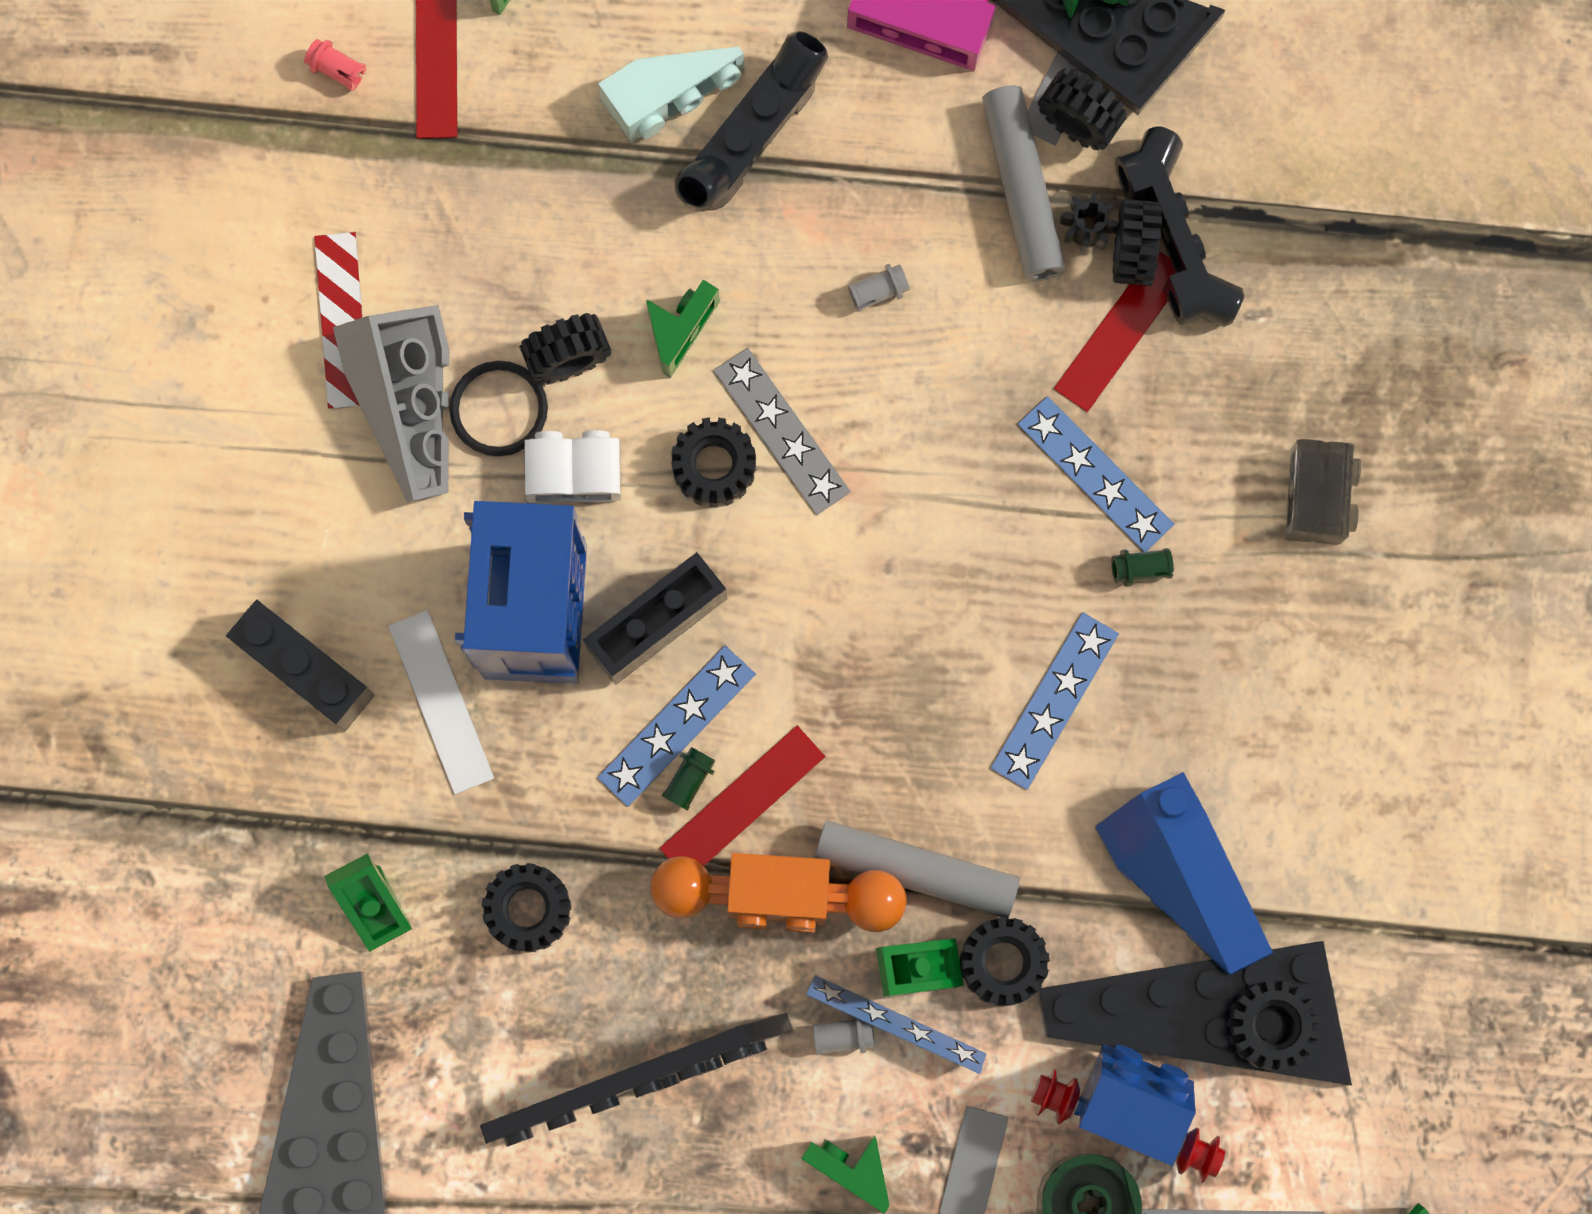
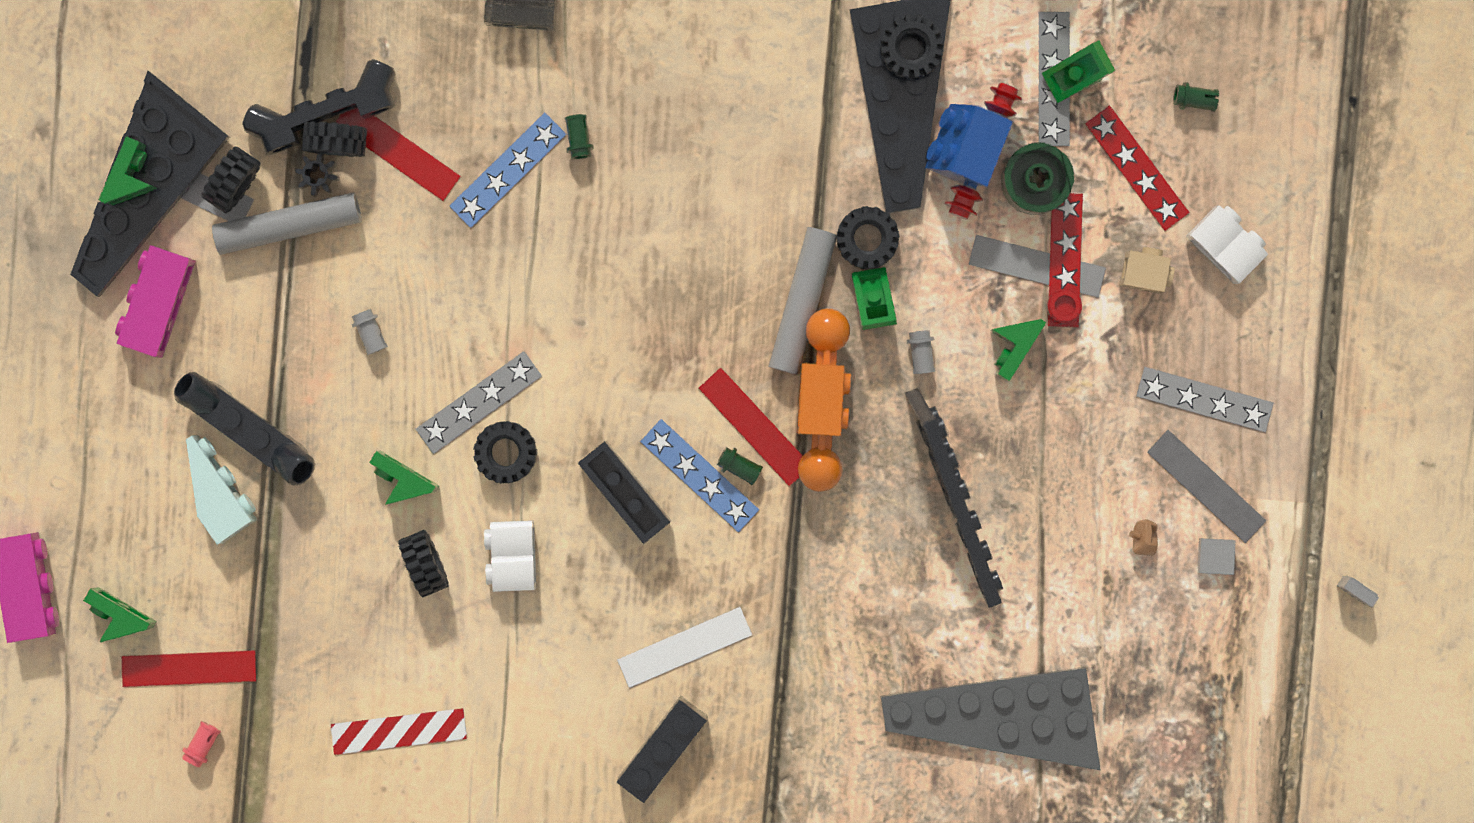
camera: 85 degrees left, 10 degrees up
(368, 901) = (832, 692): green slope -> none
(398, 380) = (449, 686): light grey wedge -> none
(471, 375) = (471, 644): black tyre -> none
(505, 887) = (834, 601): black tyre -> none
(534, 593) = (617, 572): blue container -> none
(897, 1024) = (913, 314): medium blue sticker -> none
(1054, 701) = (677, 200): medium blue sticker -> none
(1178, 862) = (795, 114): blue wedge -> none

